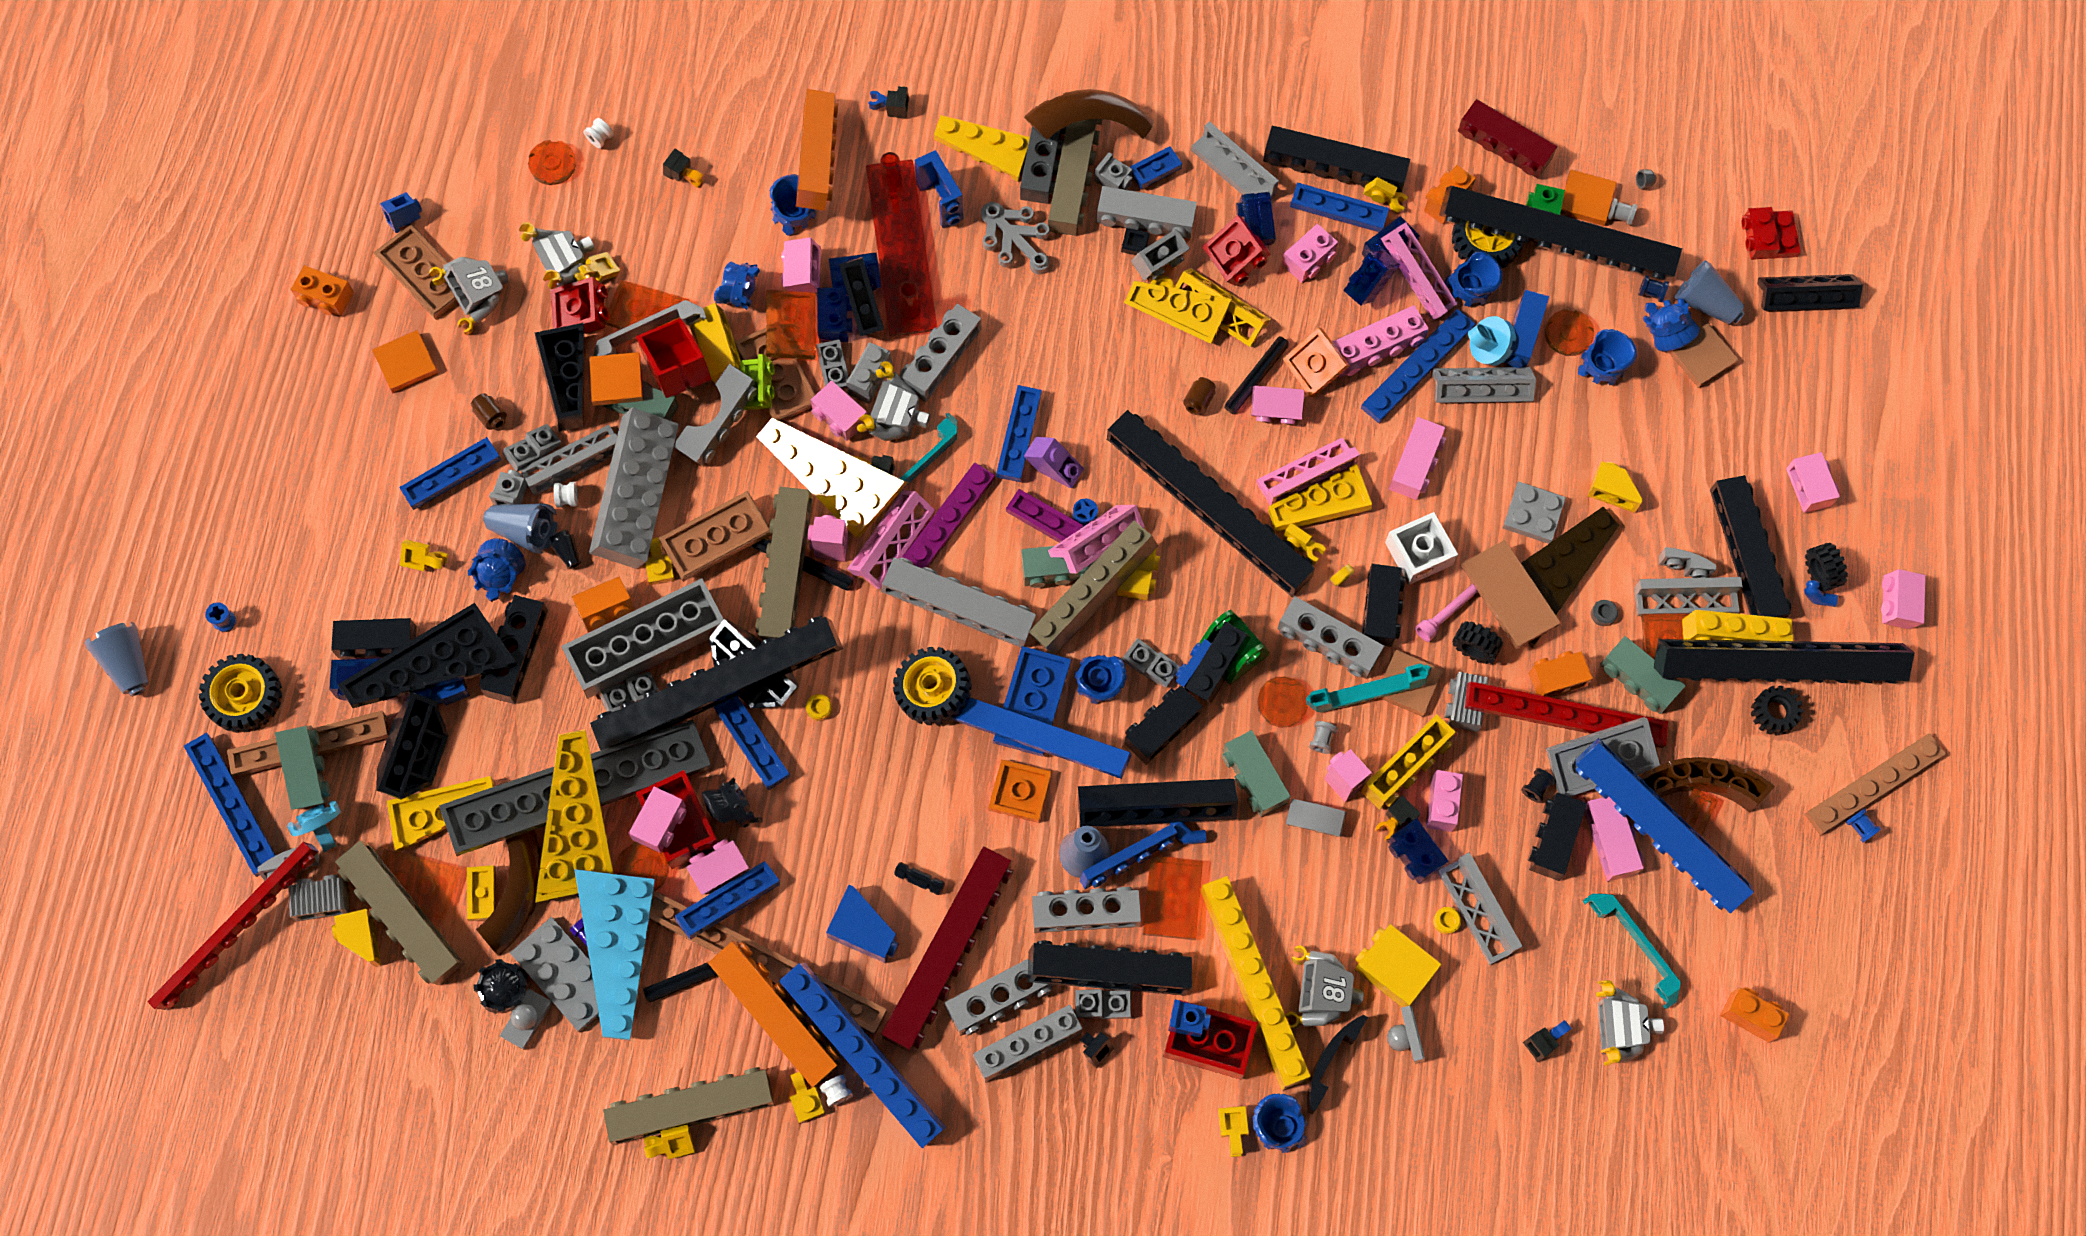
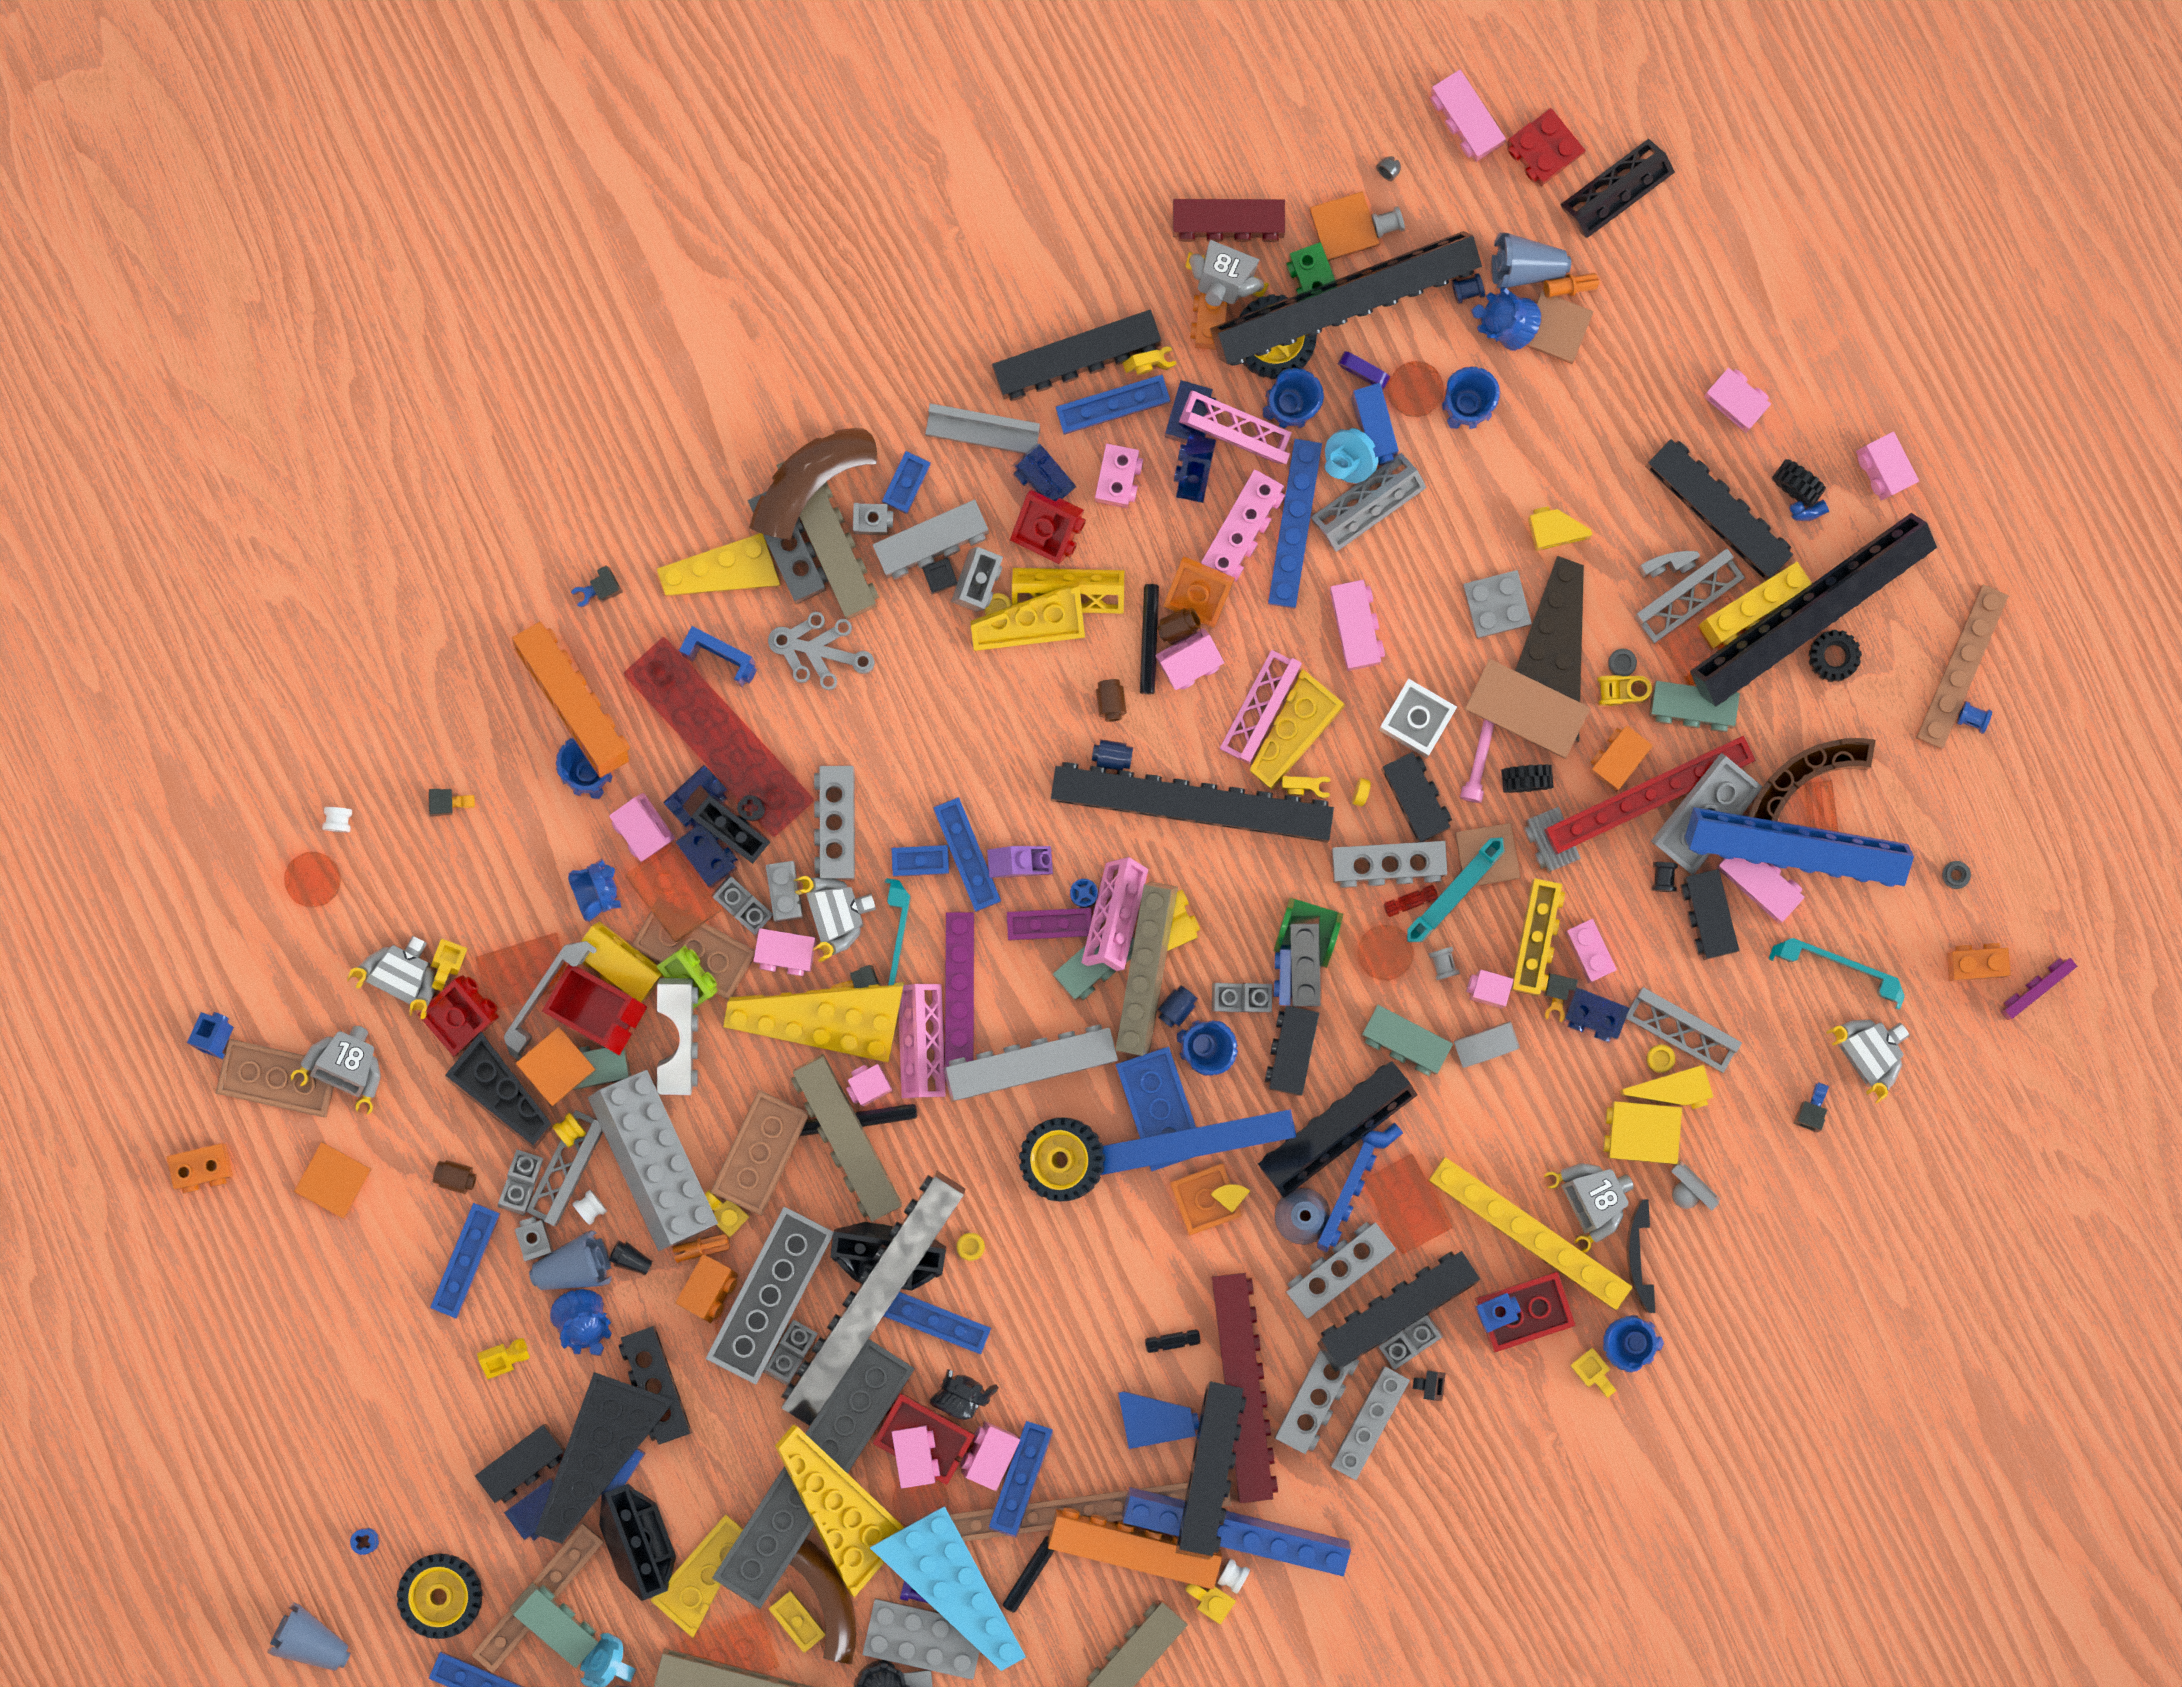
camera: 30 degrees left, 15 degrees up
(592, 430) = (569, 1129): none -> yellow wheel
(628, 577) = (701, 1246): none -> orange axle
(874, 985) = (1210, 1470): none -> black brick
(887, 302) = (756, 815): none -> black bush
(982, 416) = (920, 860): none -> blue plate
(1040, 797) = (1230, 1195): none -> yellow tile
(1097, 636) = (1177, 1006): none -> dark blue brick
(1174, 432) = (1112, 755): none -> dark blue brick
(1285, 376) = (1179, 625): none -> reddish brown brick
(1327, 677) = (1410, 901): none -> clear red axle
(1450, 950) = (1678, 1089): none -> yellow slope
(1483, 165) = (1225, 274): none -> light grey torso
(1535, 284) = (1363, 369): none -> dark purple beam
(1592, 629) = (1621, 690): none -> yellow piece
(1726, 179) = (1466, 116): none -> bright pink brick
(1733, 331) = (1570, 285): none -> orange axle
(1781, 930) = (1964, 871): none -> dark grey plate
(1793, 1066) = (2037, 987): none -> magenta plate

